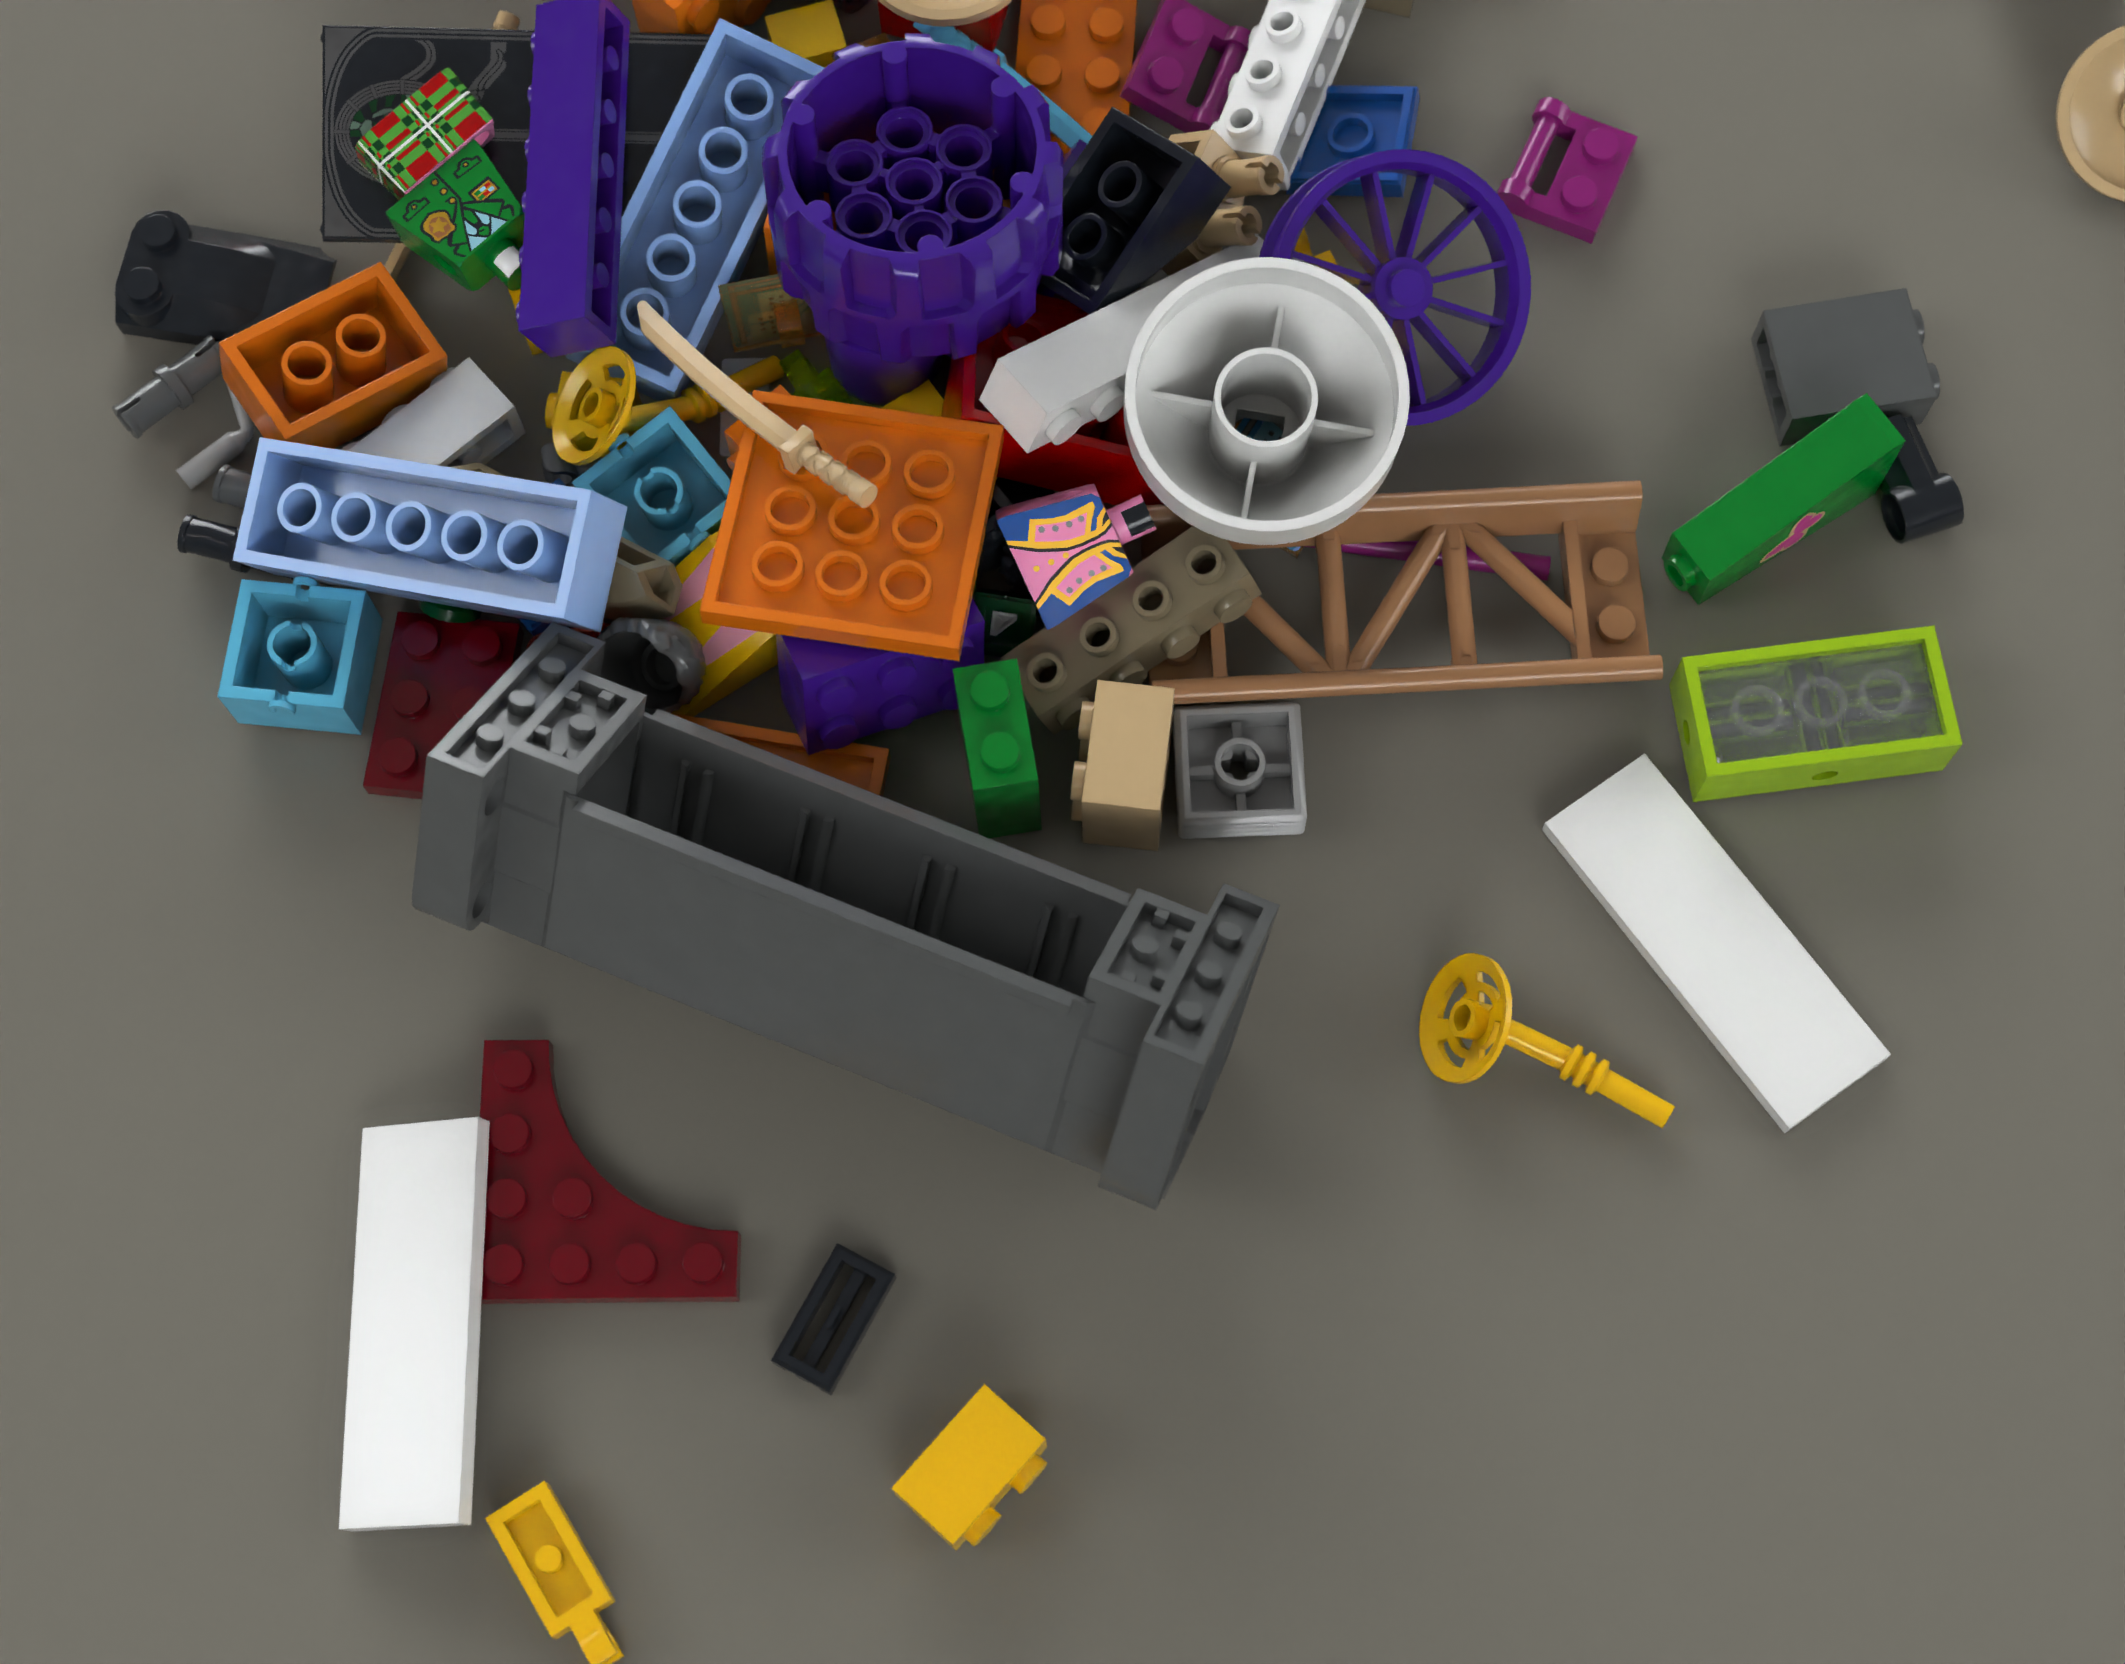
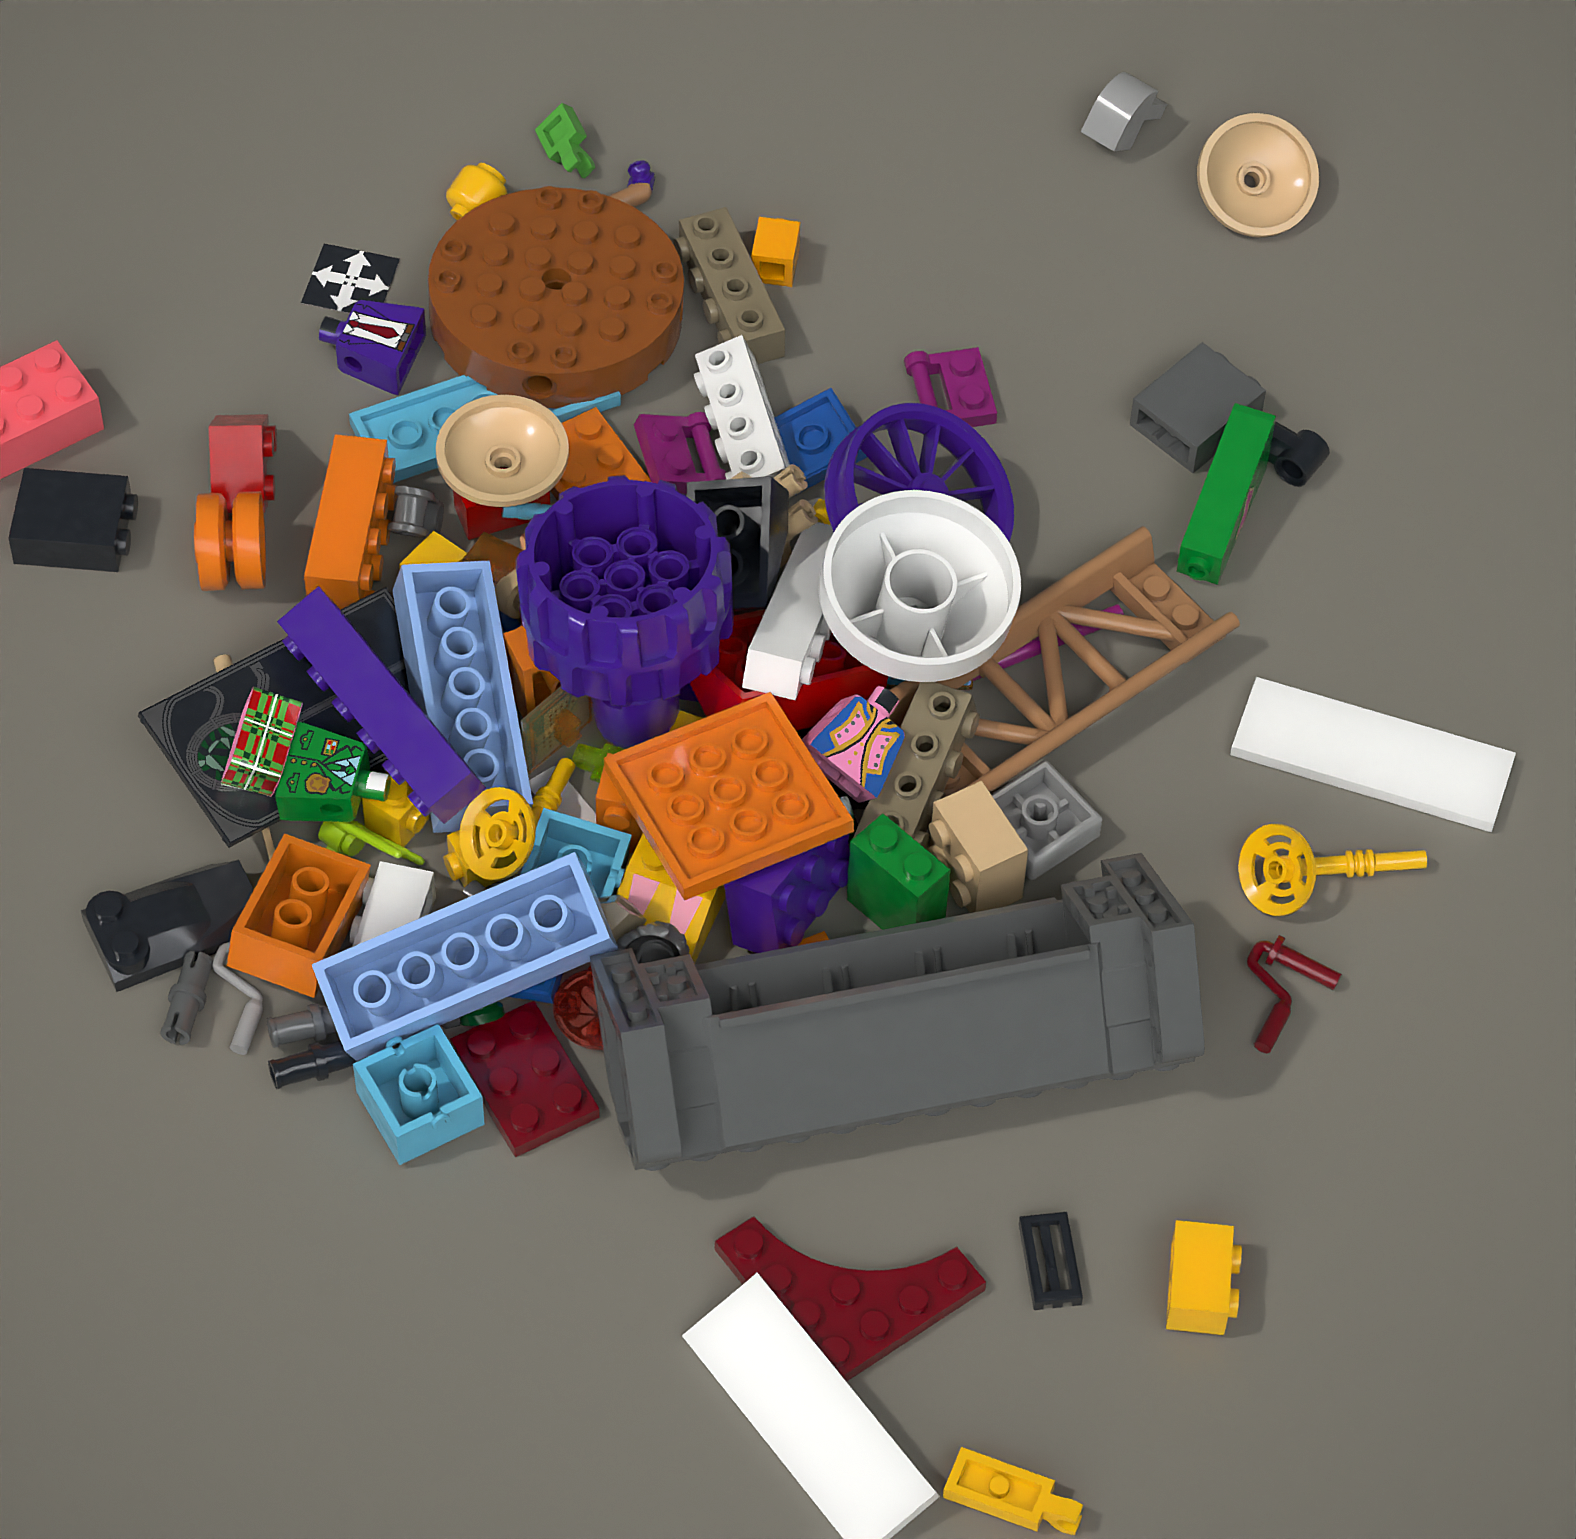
camera: 40 degrees left, 15 degrees down
(478, 312) = (351, 837): none -> lime plant
(796, 446) = (662, 768): tan sword -> none
(1345, 1192) = (1296, 961): none -> dark red piece
(1814, 713) = (1333, 598): brick -> none

